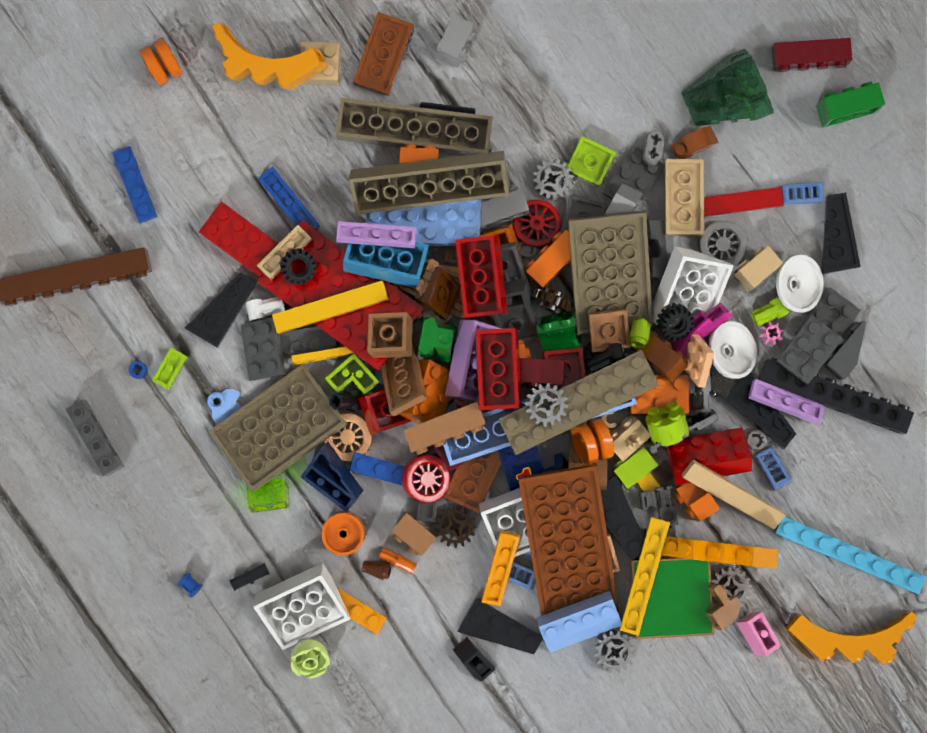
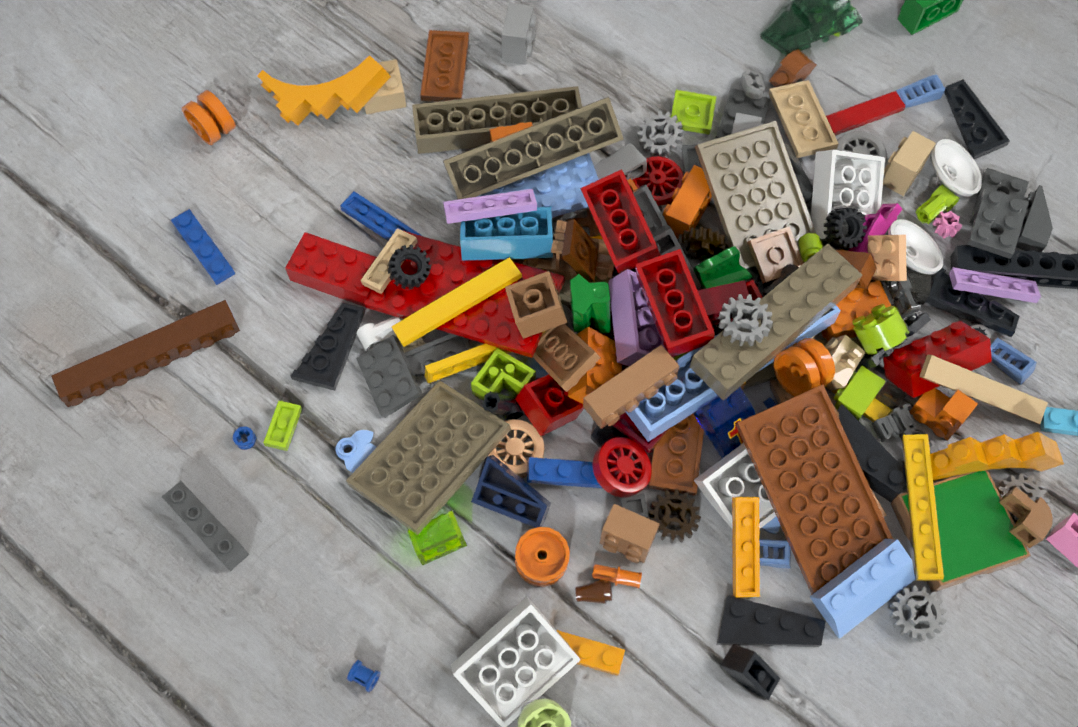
camera: 20 degrees left, 20 degrees down
(249, 577) = (437, 645): black pin -> none

